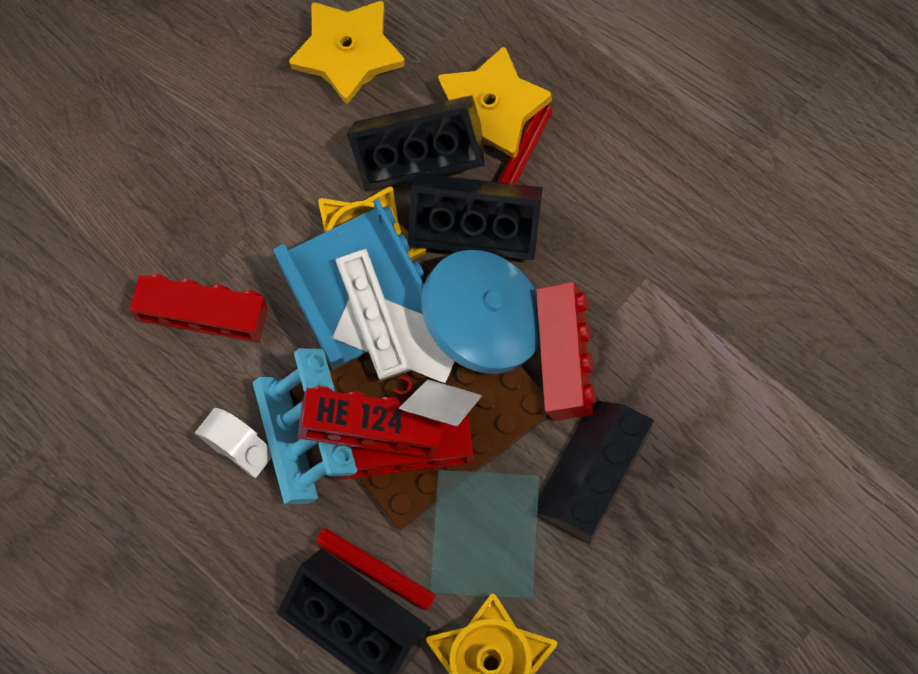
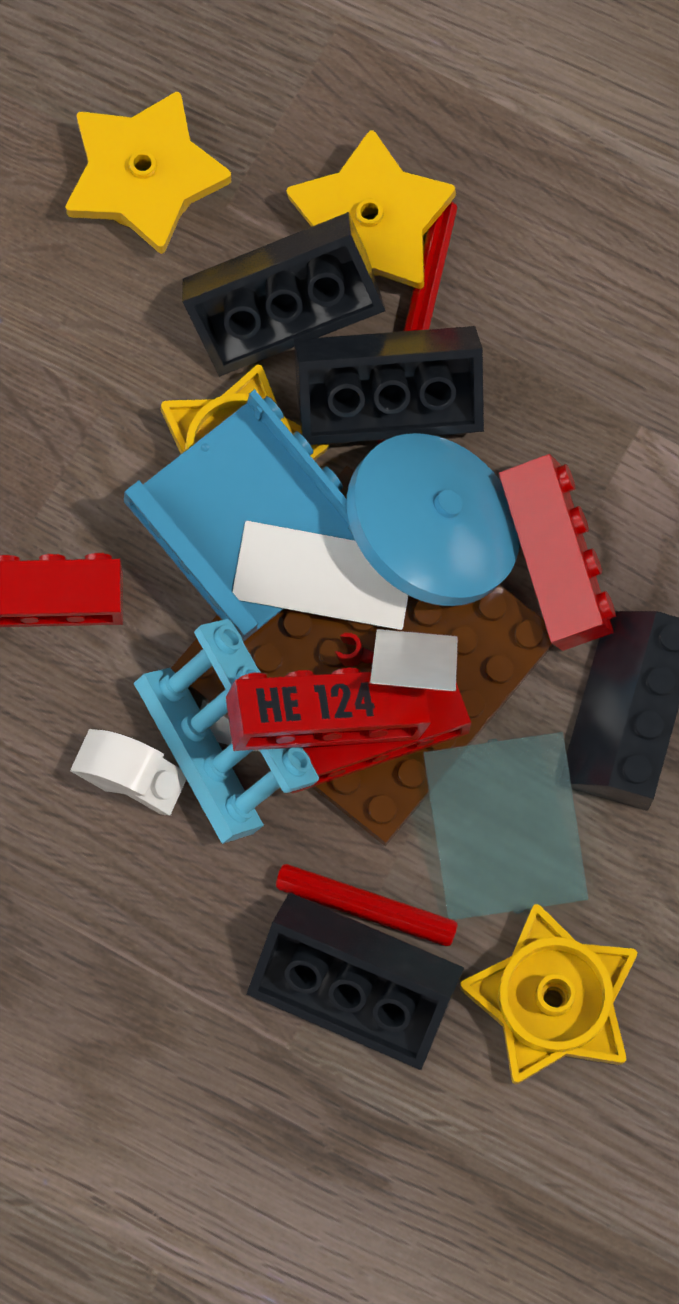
camera: 20 degrees left, 5 degrees up
(373, 314) = (281, 554): white tile -> none

